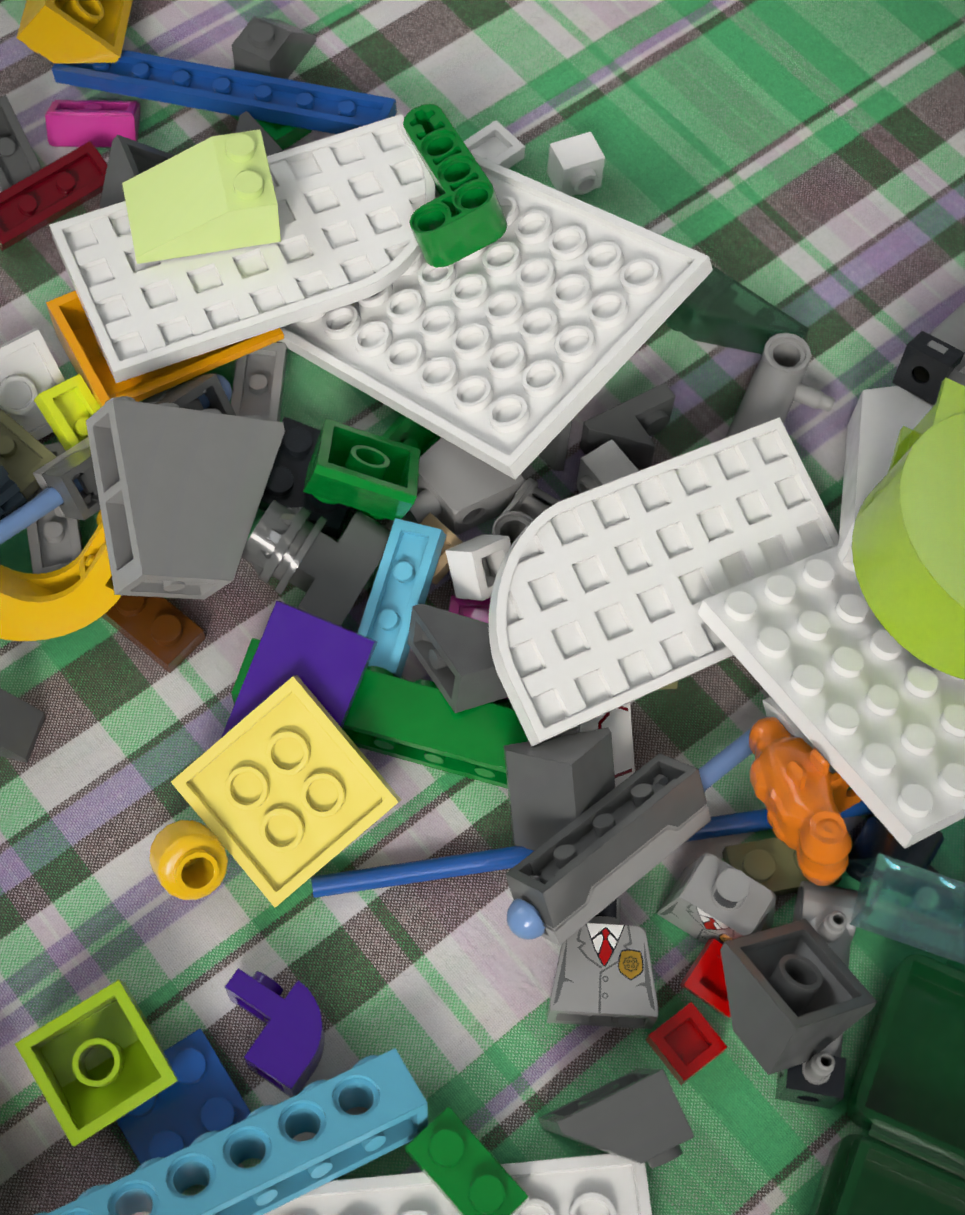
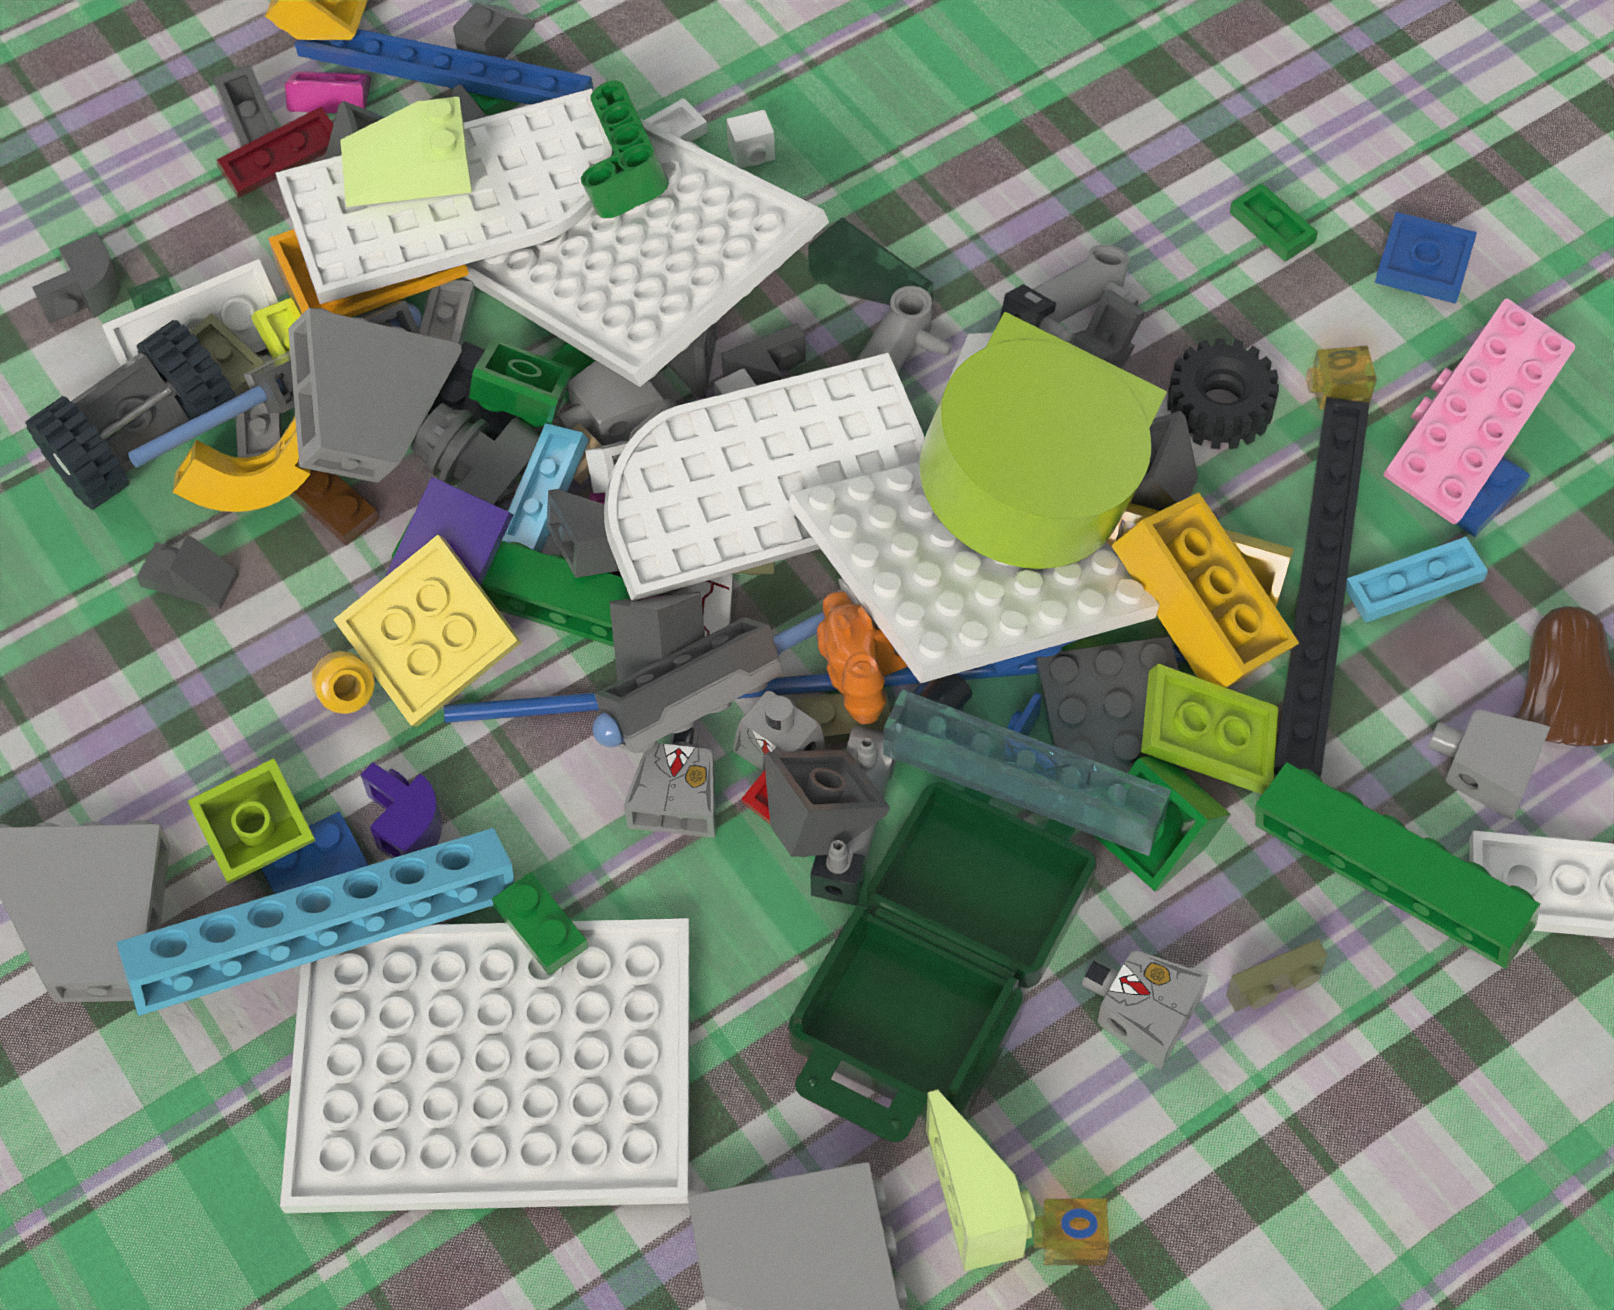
camera: 10 degrees right, 5 degrees down
(627, 1117) = (668, 886): dark grey slope -> none
(686, 1043) = (738, 845): red plate -> none

